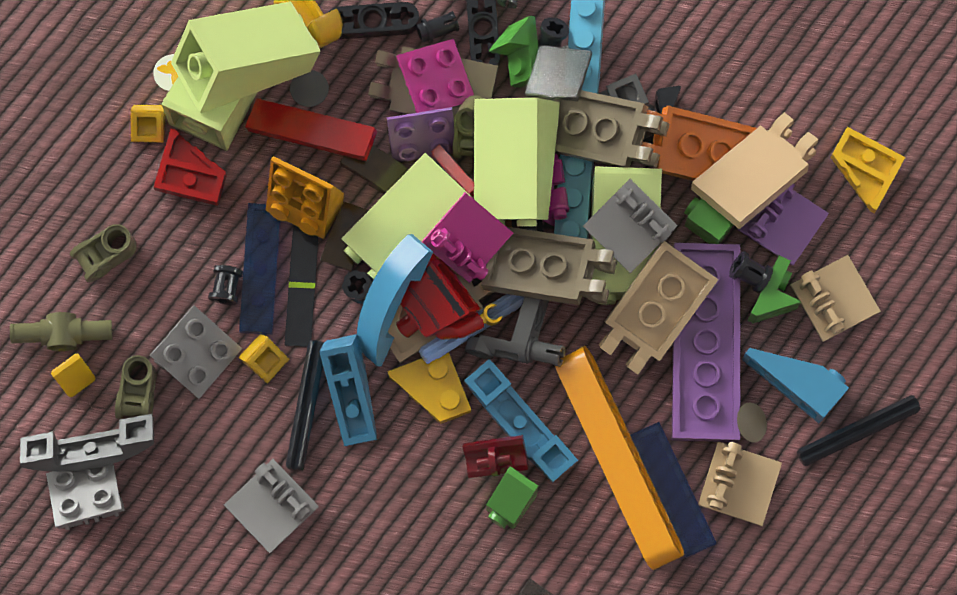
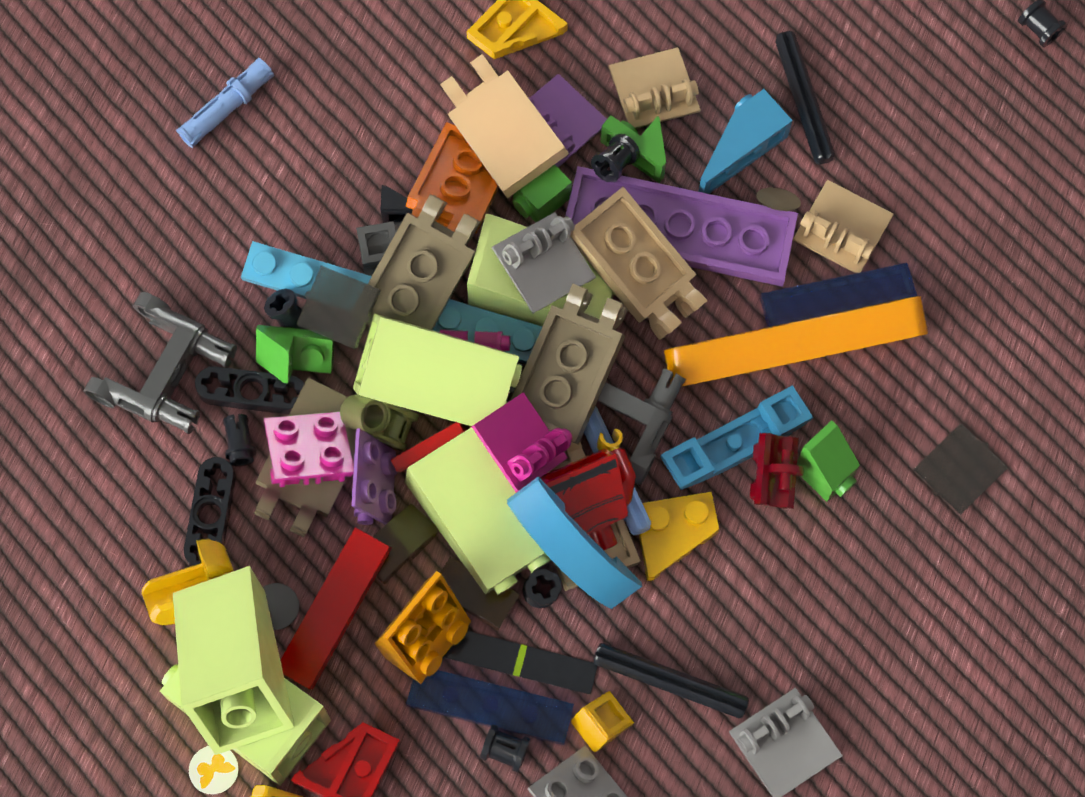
camera: 80 degrees left, 5 degrees down
(349, 389) = (662, 623): dark azure slope -> none

